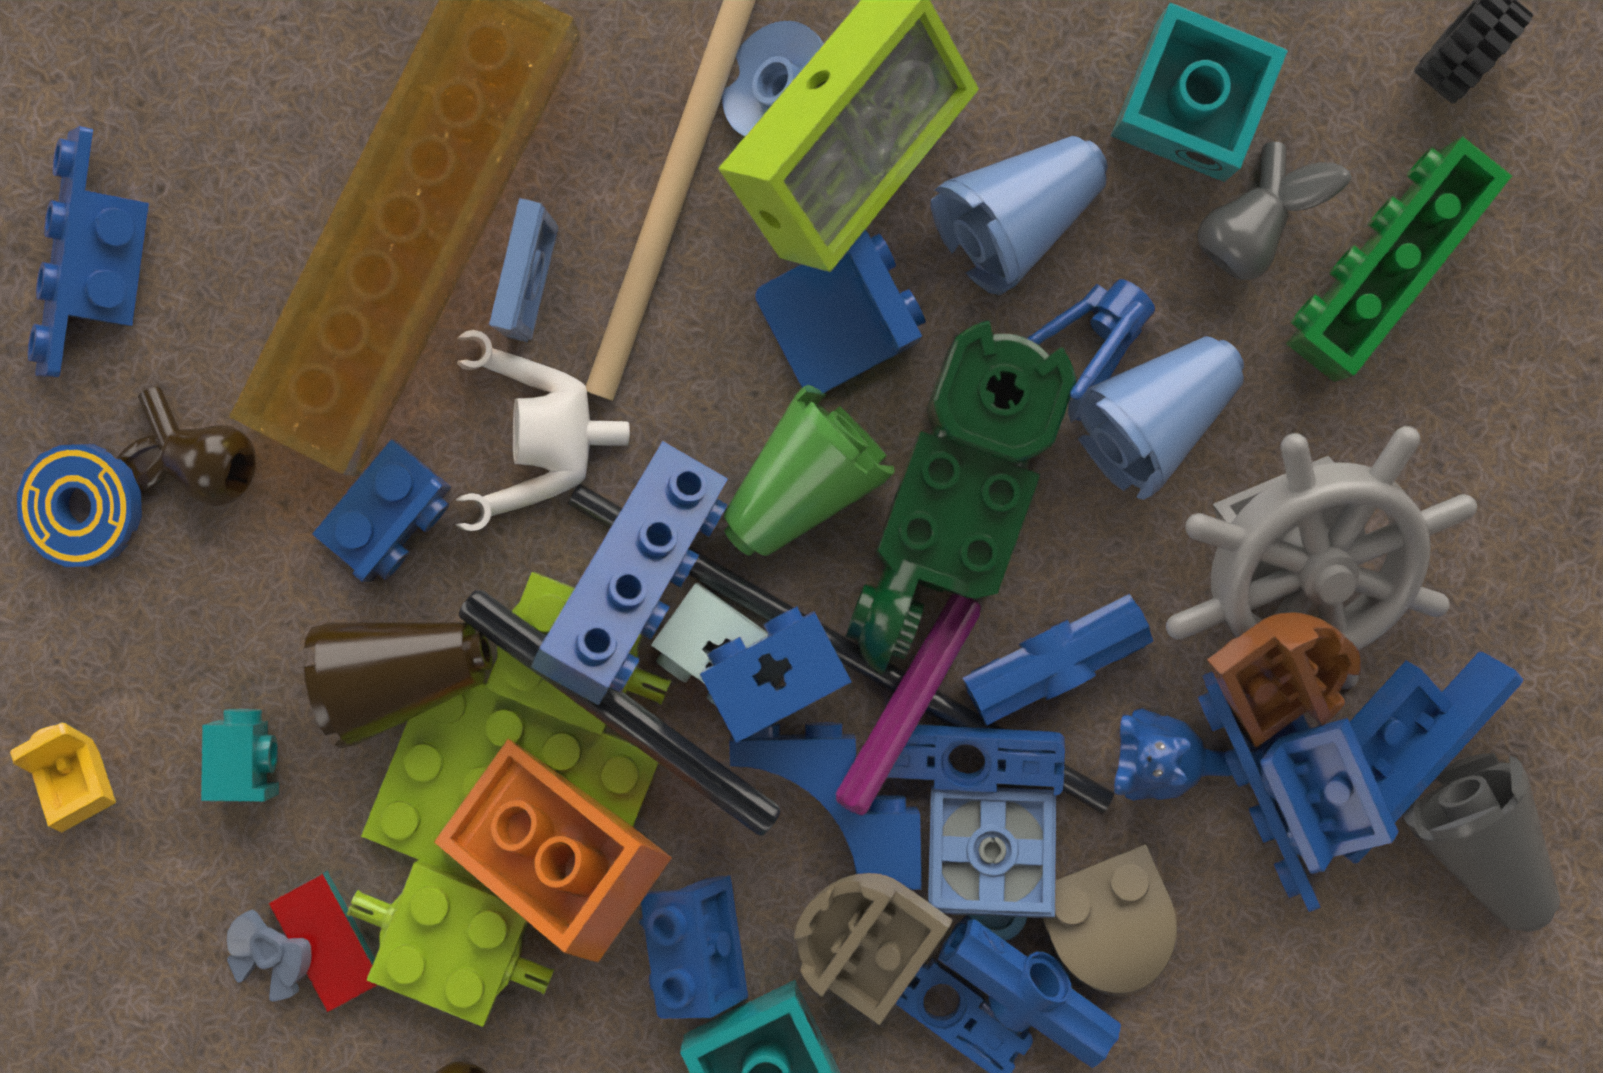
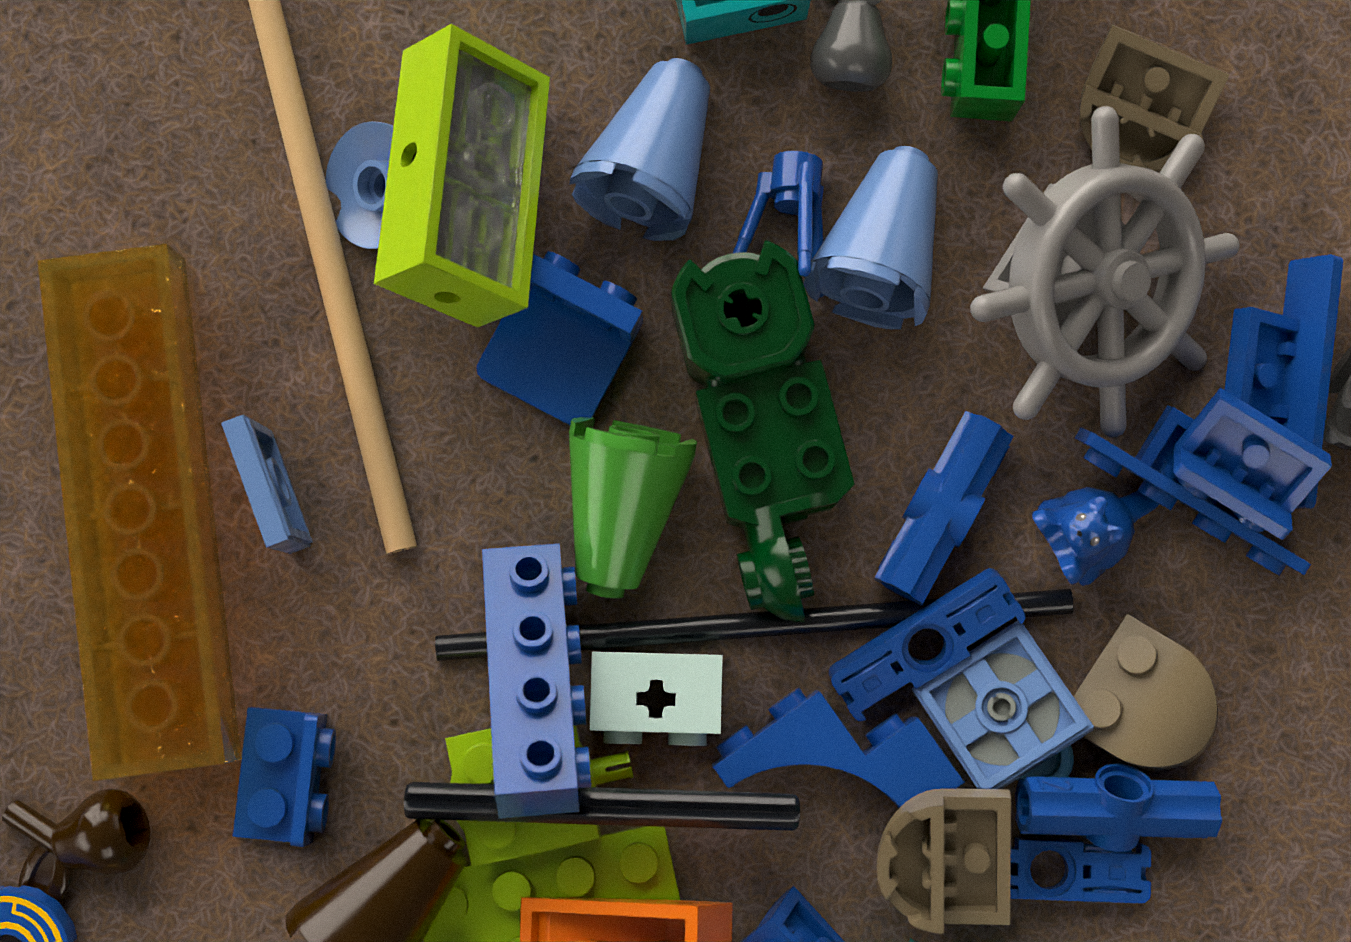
camera: 30 degrees left, 5 degrees down
(547, 431) = (377, 609): white piece -> none
(755, 705) = (745, 658): blue brick -> none
(908, 704) = (844, 632): magenta axle -> none
(1282, 671) = (1139, 385): dark orange slope -> none
(1464, 439) = (1153, 91): none -> dark tan slope

